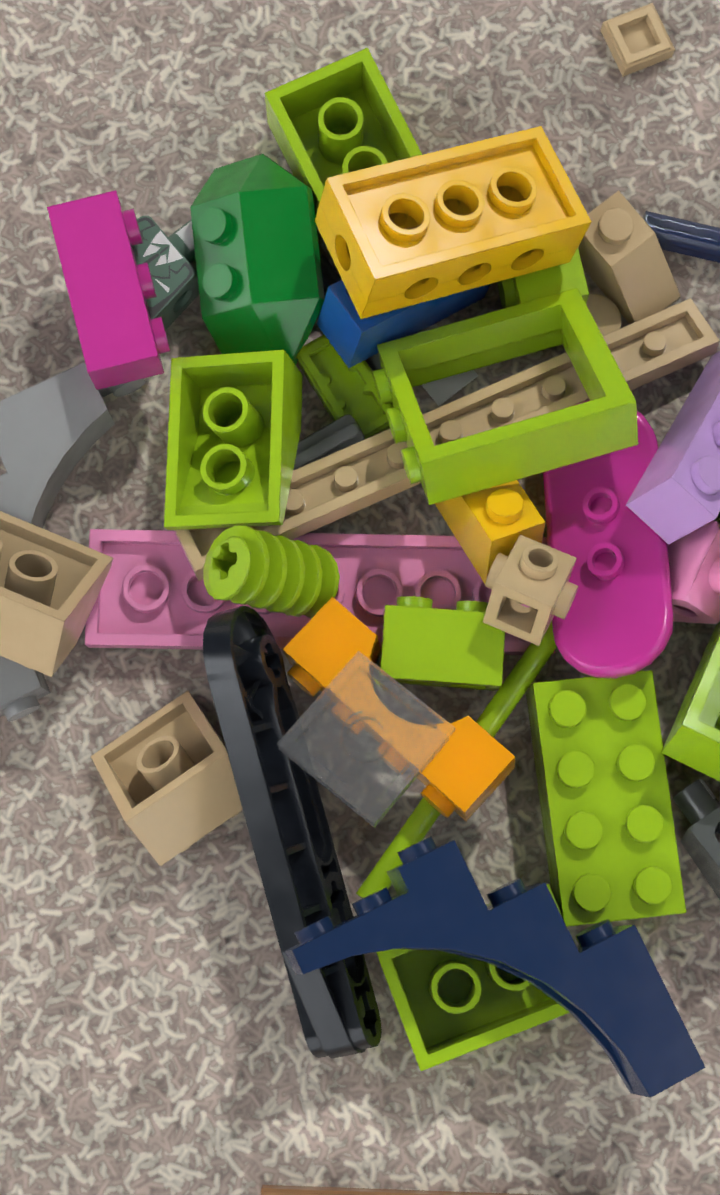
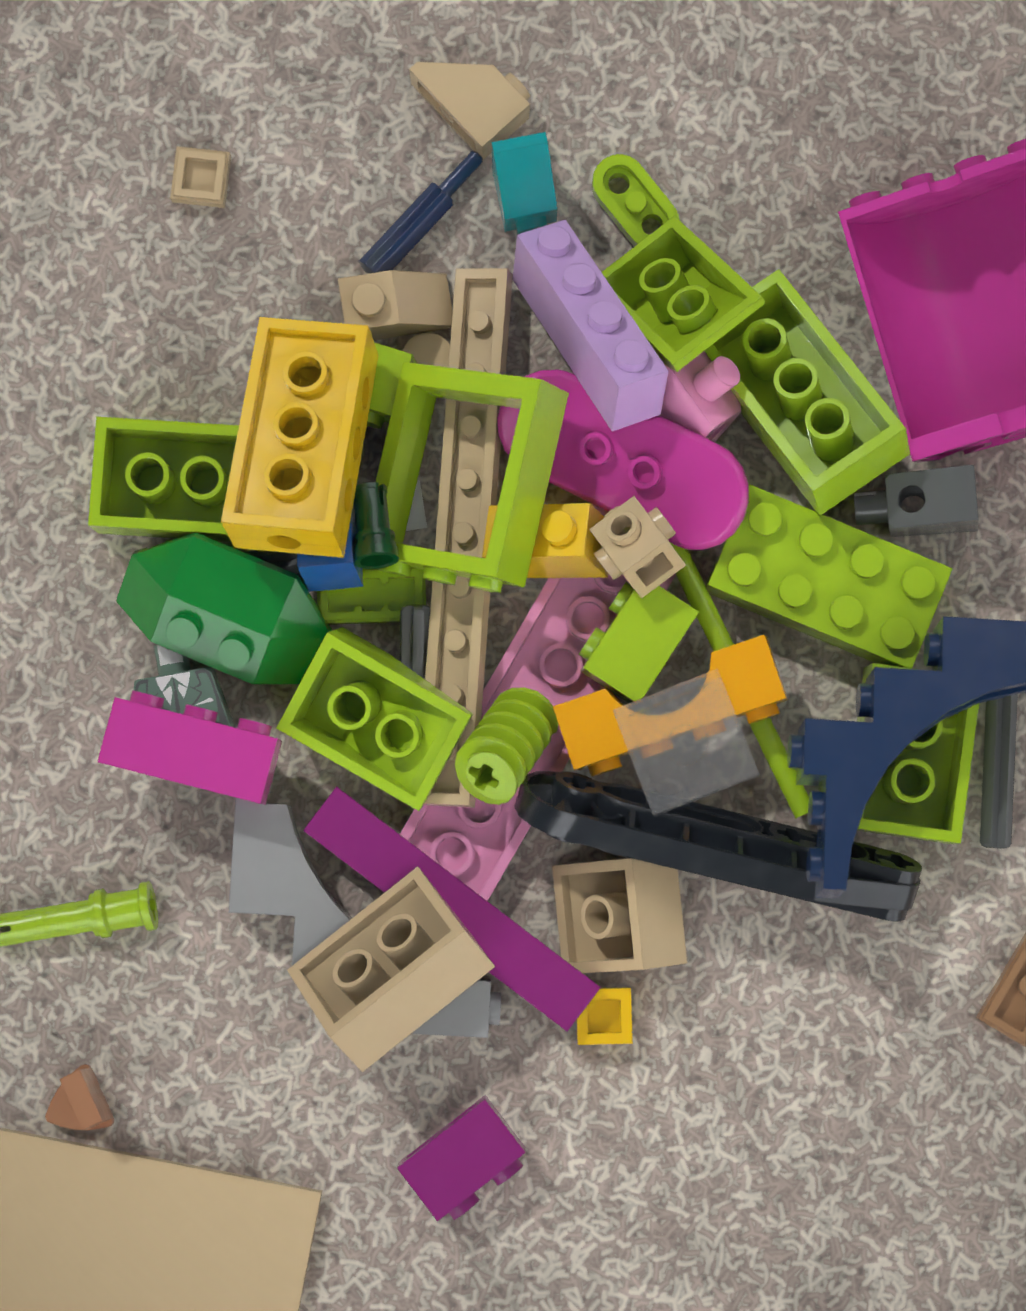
camera: 60 degrees left, 5 degrees up
(69, 815) = (606, 1018): none -> yellow plate
(82, 684) = (518, 956): none -> magenta tile
(398, 342) = (374, 538): none -> dark green pin
(514, 1073) = (998, 772): none -> dark grey axle

